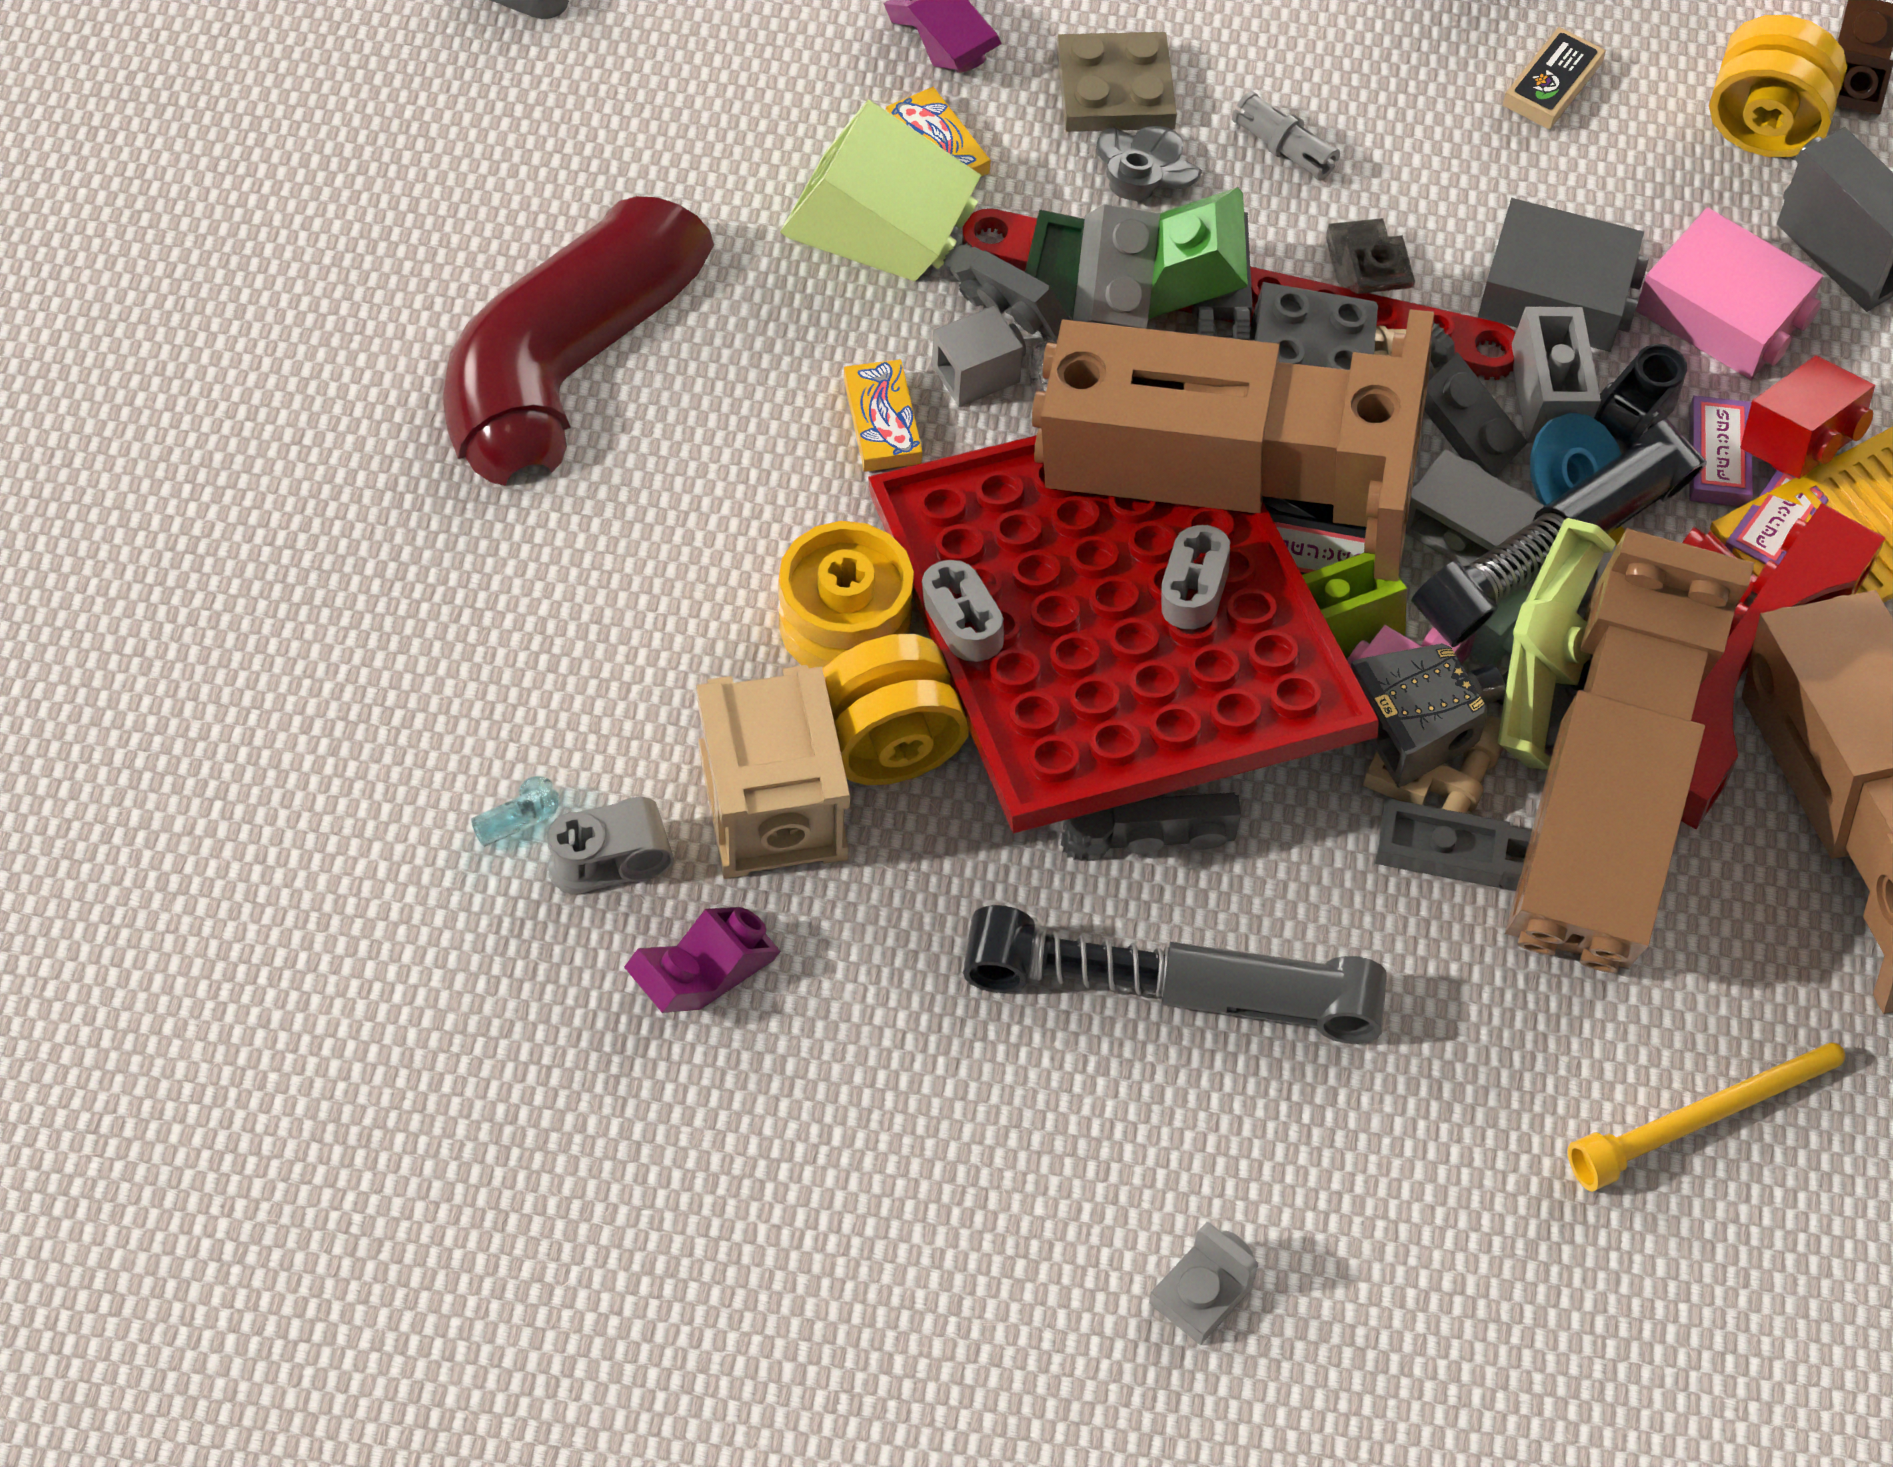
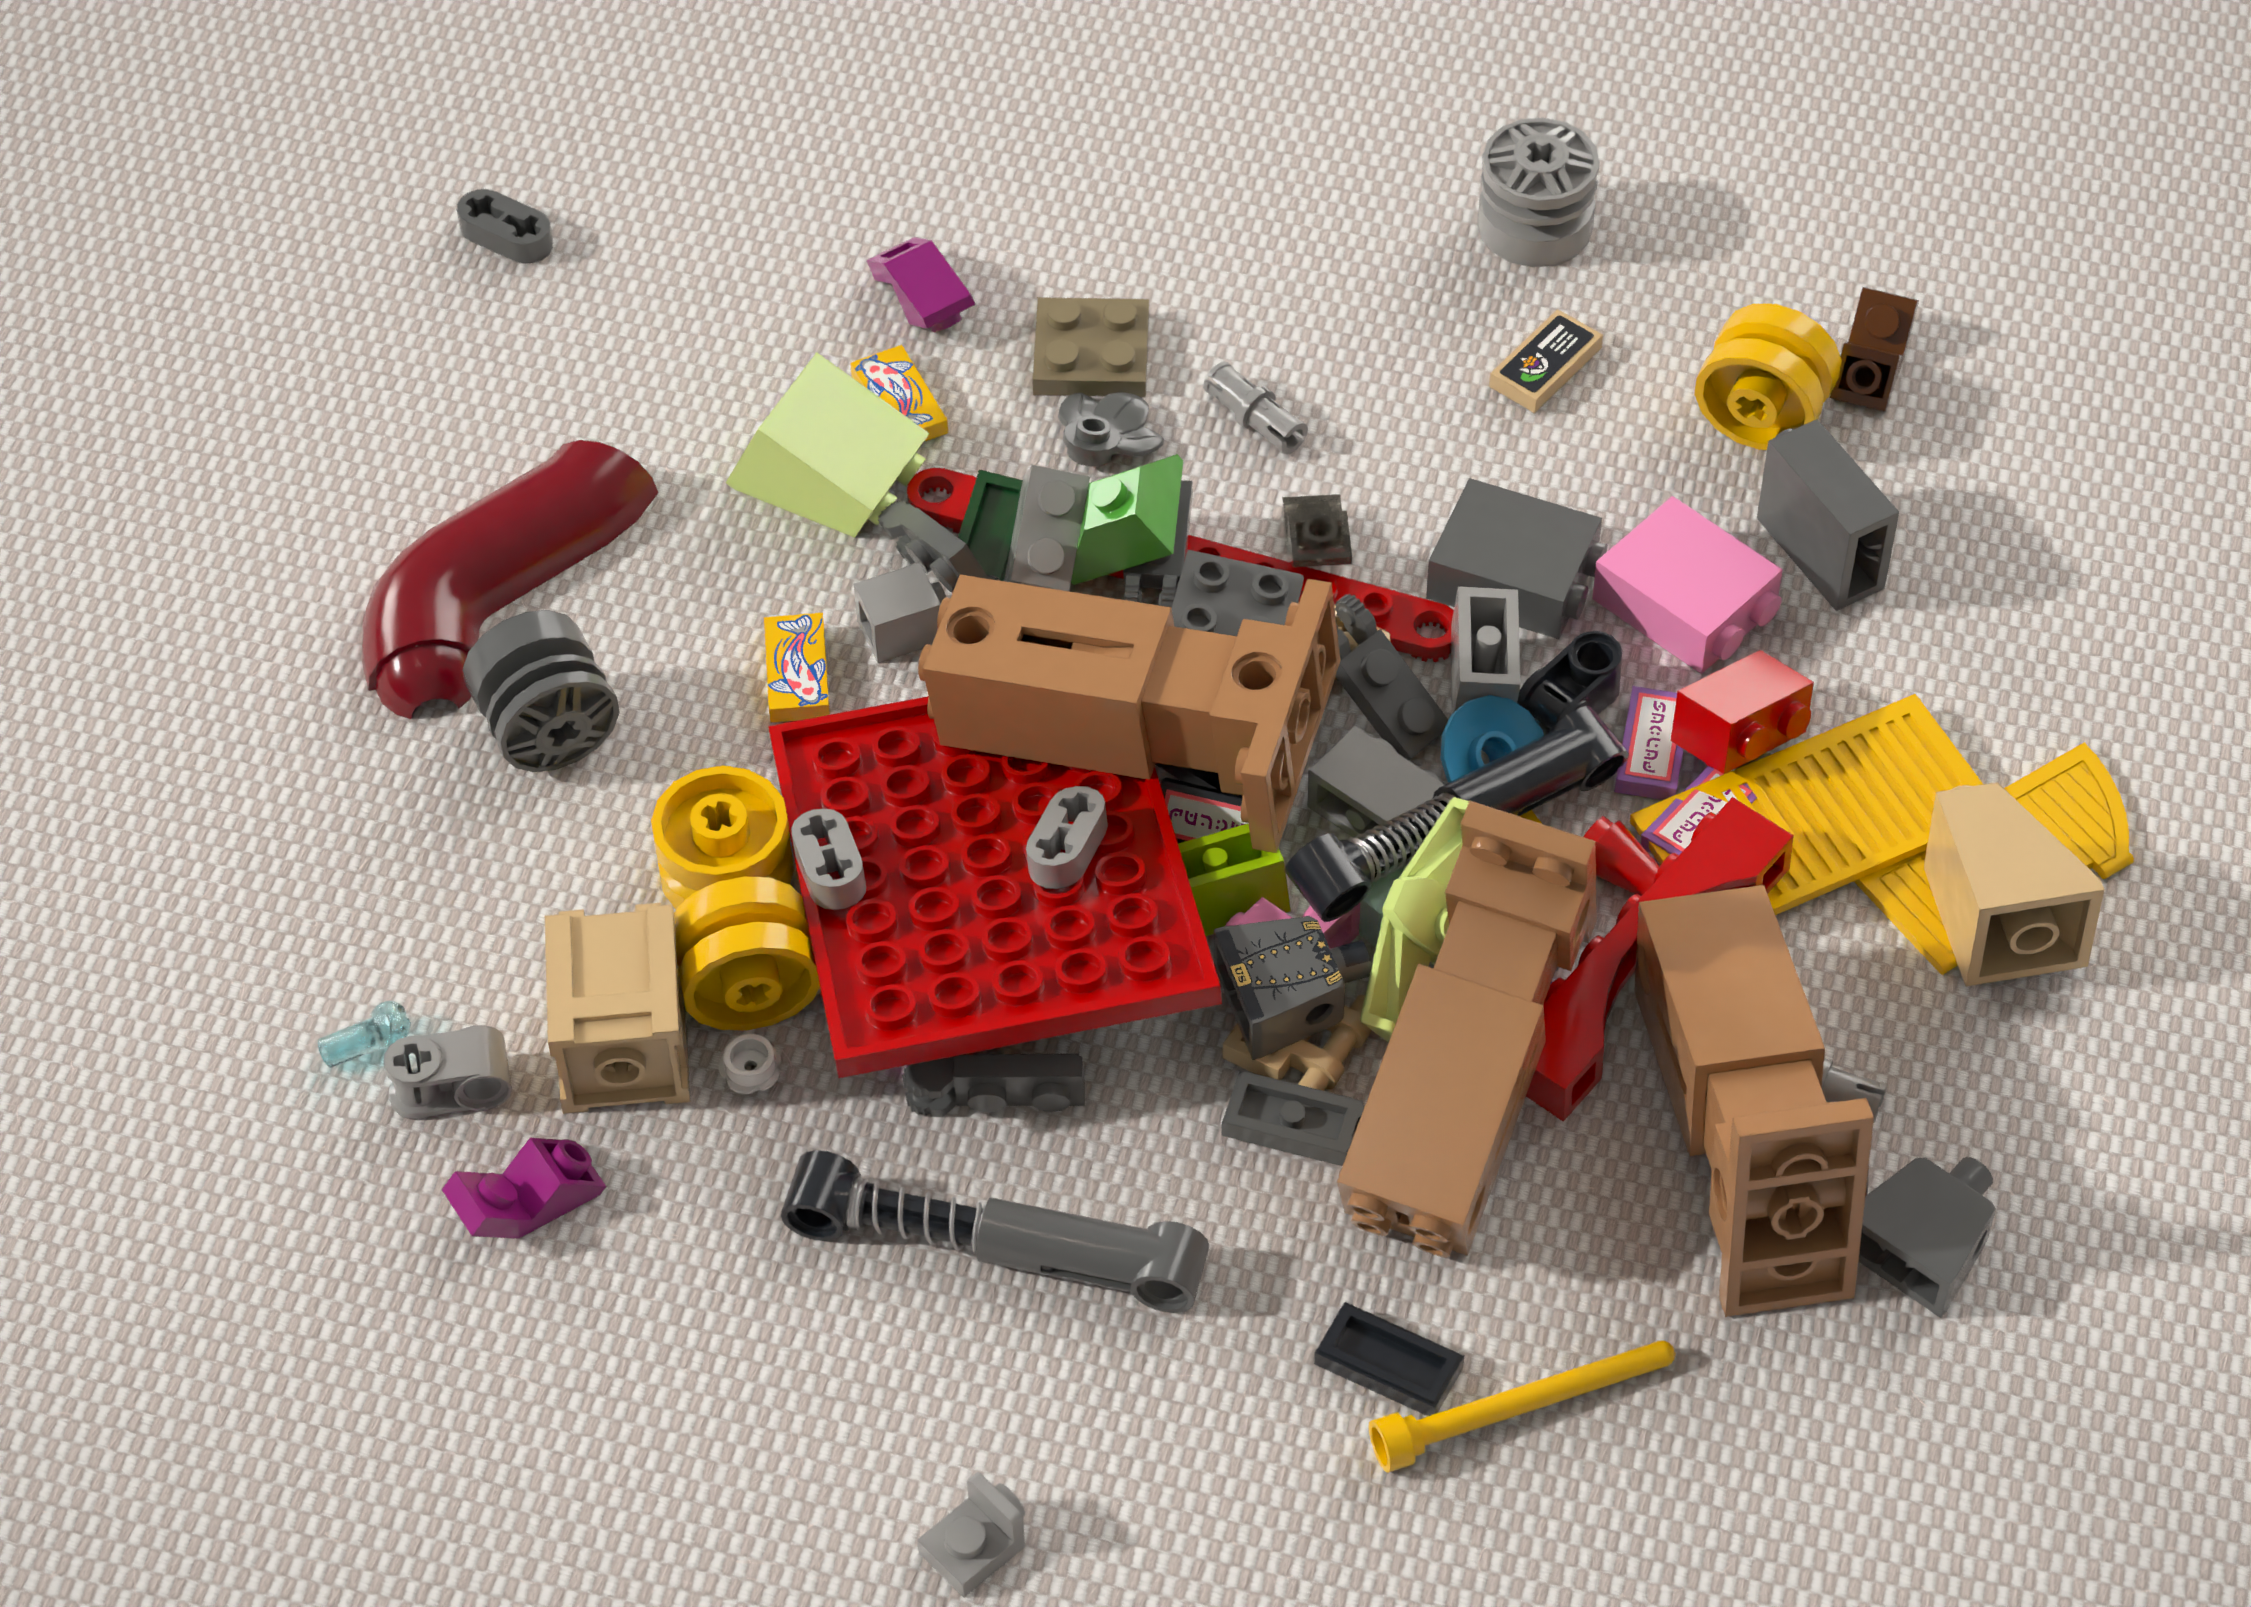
camera: 10 degrees right, 5 degrees down
(642, 452) = (540, 691): none -> dark grey wheel
(905, 805) = (750, 1051): none -> white plate
(1574, 1078) = (1389, 1360): none -> black tile

